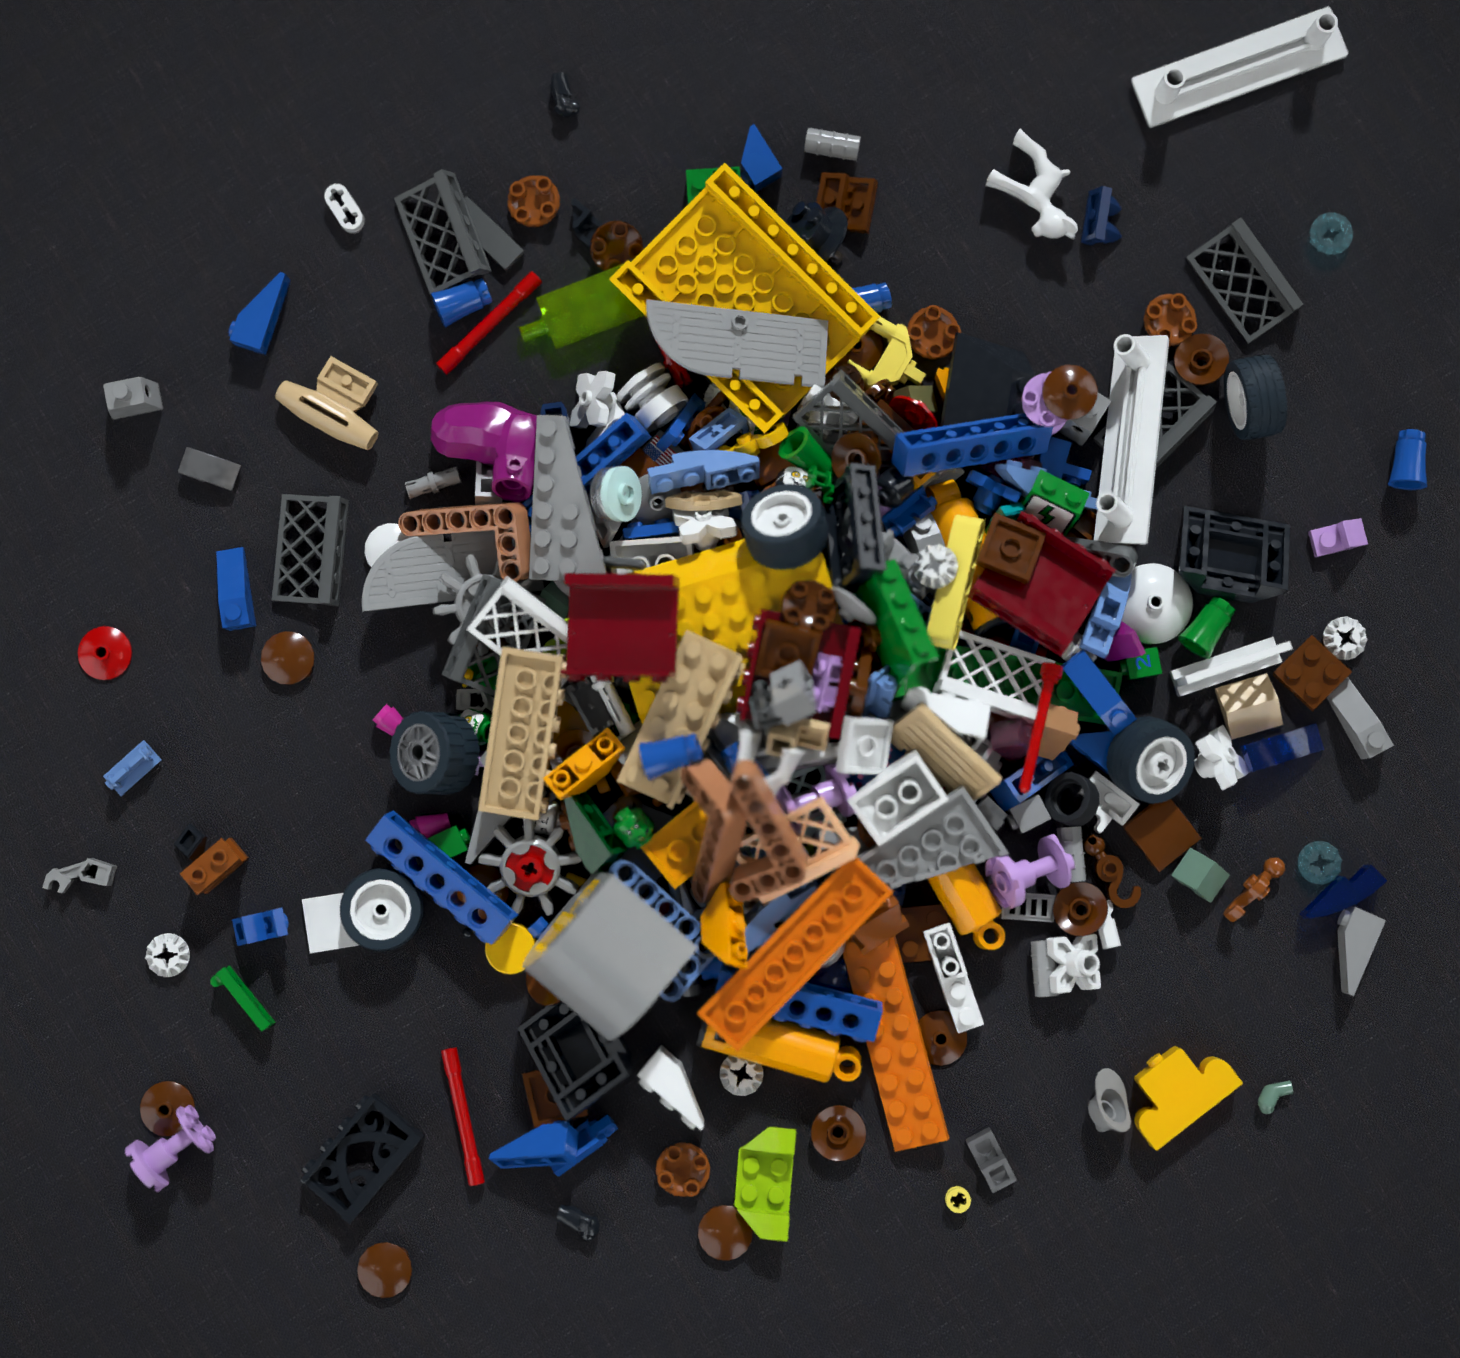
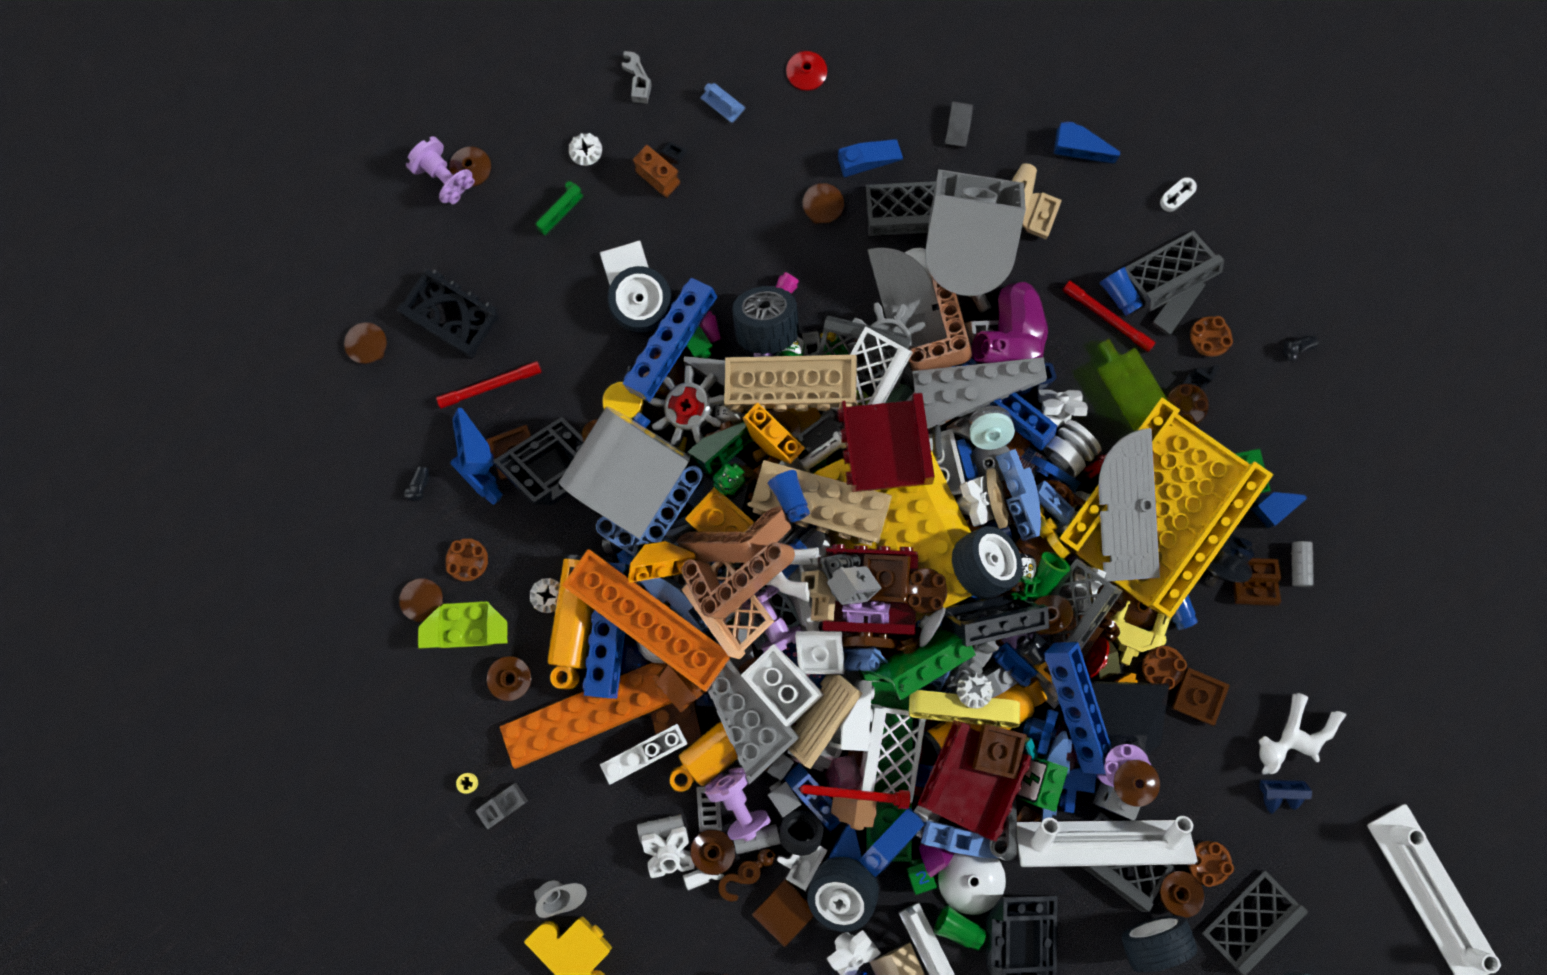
camera: 75 degrees right, 5 degrees down
(129, 397) = (1002, 55): light grey torso -> none
(260, 926) = (615, 212): blue brick -> none
(364, 475) = (973, 231): none -> light grey brick
(668, 1078) = (533, 539): white slope -> none
(942, 1023) = (606, 750): reddish brown dish -> none
(974, 295) = (1200, 696): none -> reddish brown plate
(1200, 874) = (754, 950): sand green piece -> none

